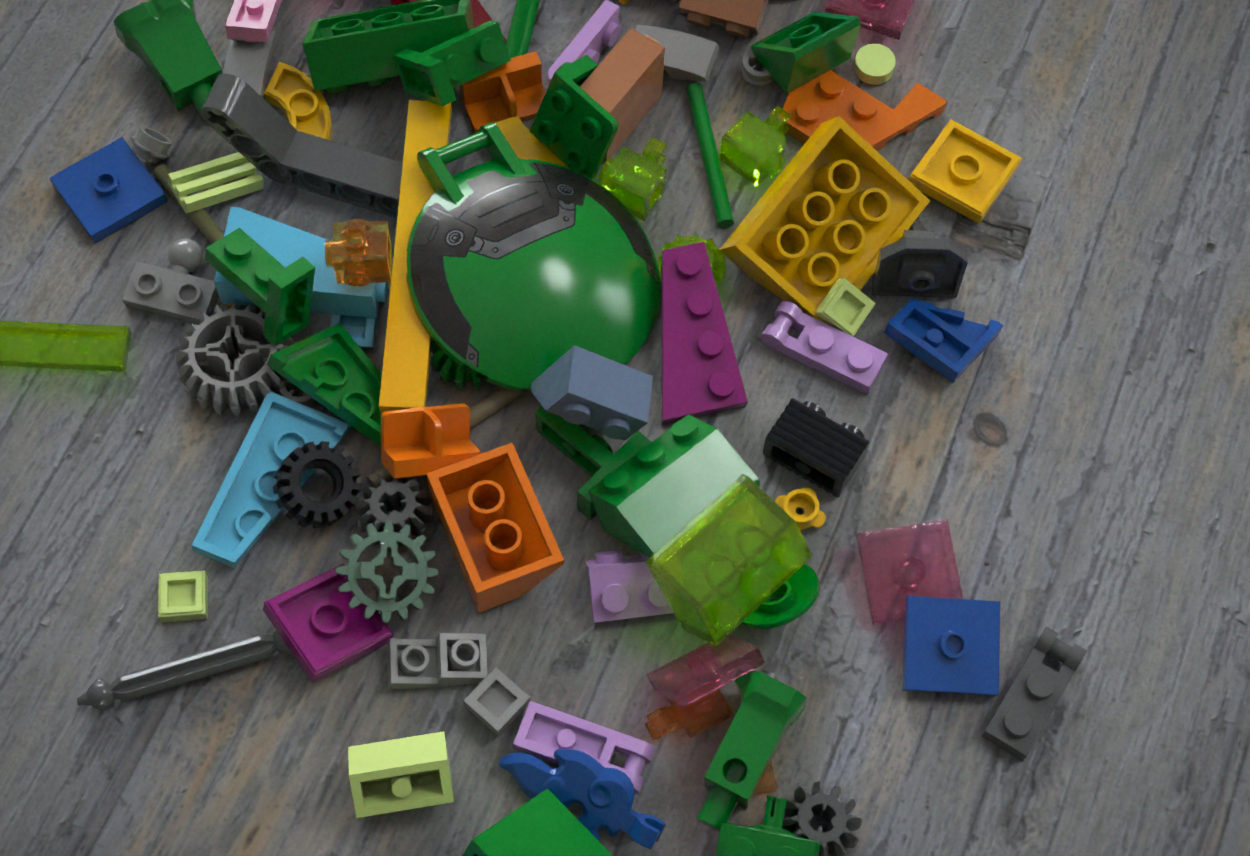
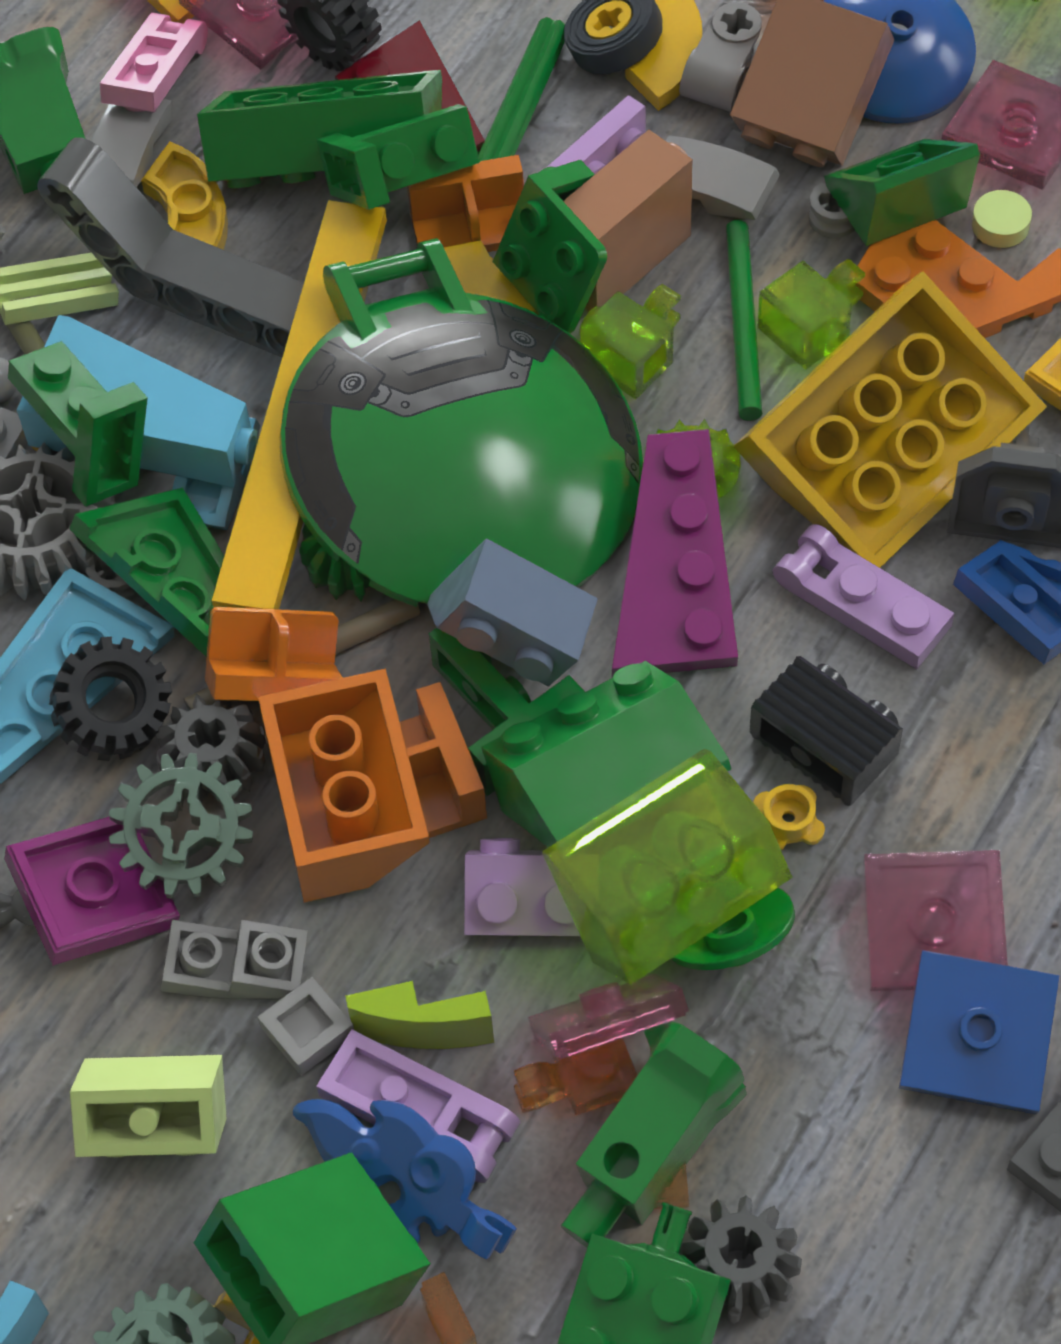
camera: 15 degrees right, 5 degrees down
(360, 252) = (216, 387): clear orange brick -> none
(559, 501) = (442, 765): none -> orange panel
(561, 688) = (395, 1018): none -> lime slope
(845, 307) = (901, 542): yellowish green tile -> none

